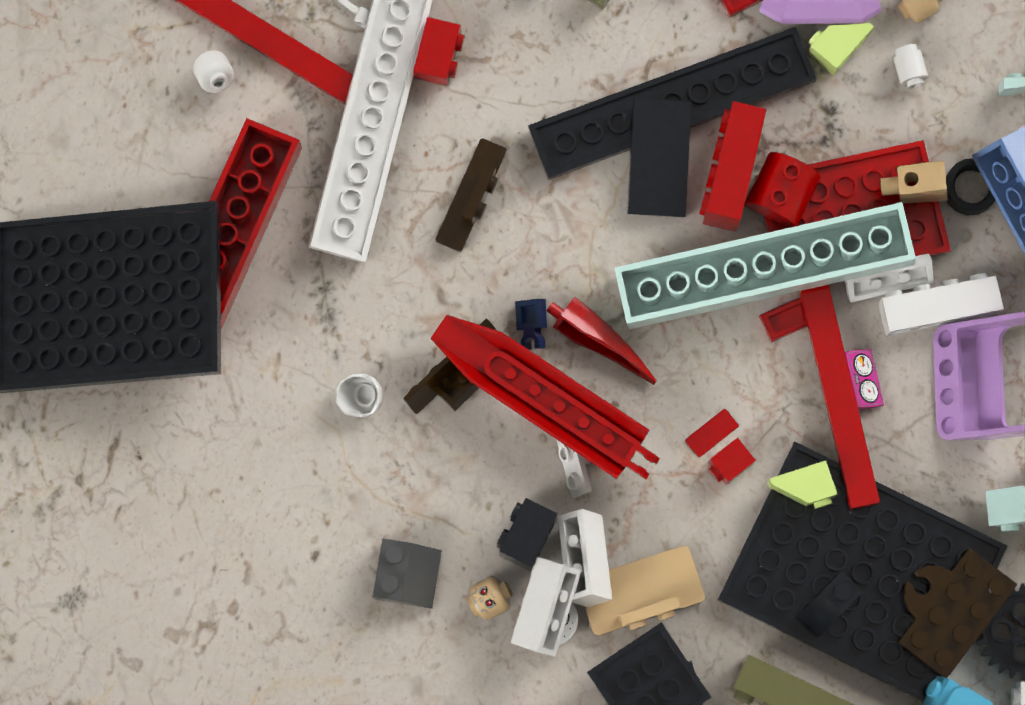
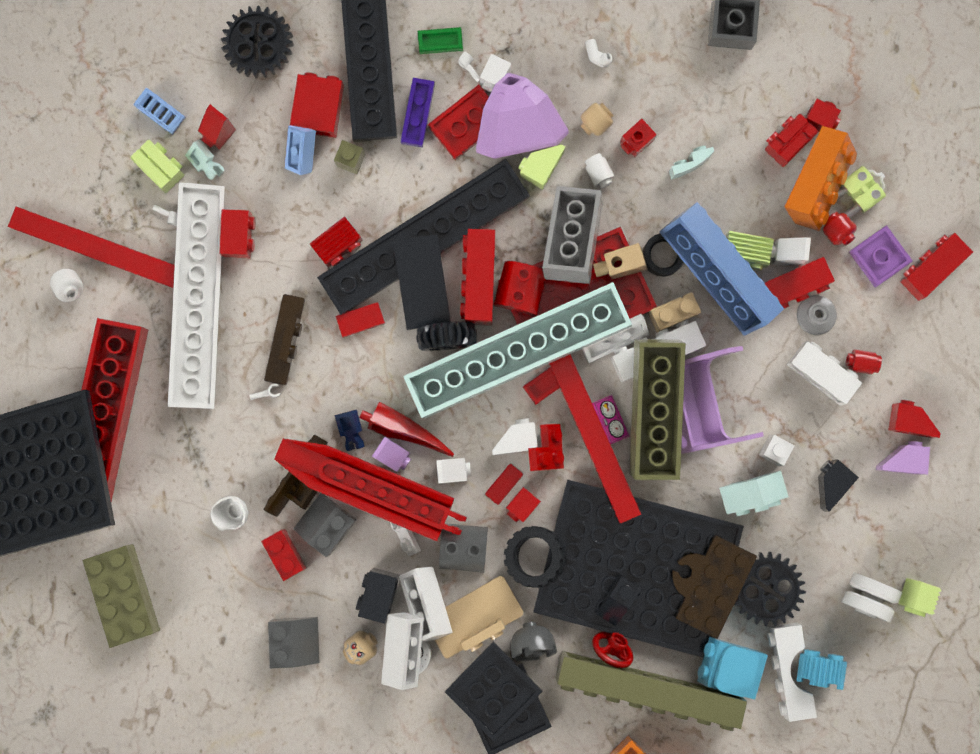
camera: 10 degrees left, 5 degrees up
(202, 469) = (121, 595): none -> olive brick
(417, 461) = (284, 554): none -> red brick
(434, 256) = (265, 393): none -> white hand
(475, 435) = (324, 525): none -> dark grey slope
(561, 87) = (336, 242): none -> red brick
(571, 190) = (360, 319): none -> red tile
(579, 363) = (392, 455): none -> lavender slope
(645, 503) = (465, 550): none -> dark grey brick
(652, 399) = (453, 470): none -> white slope
(677, 230) = (446, 336): none -> black gear
(708, 637) = (532, 642): none -> dark grey cylinder
(715, 507) = (513, 550): none -> black tyre
(741, 378) = (517, 438): none -> white slope
(777, 404) = (551, 454): none -> red plate
(806, 485) = (583, 513): yellowish green slope -> none
(815, 662) = (616, 646): none -> red piece
(862, 136) = (572, 234): none -> light grey brick
(926, 374) = (657, 409): none -> olive brick
(966, 35) = (637, 138): none -> red brick
(971, 260) = (674, 312): none -> tan brick

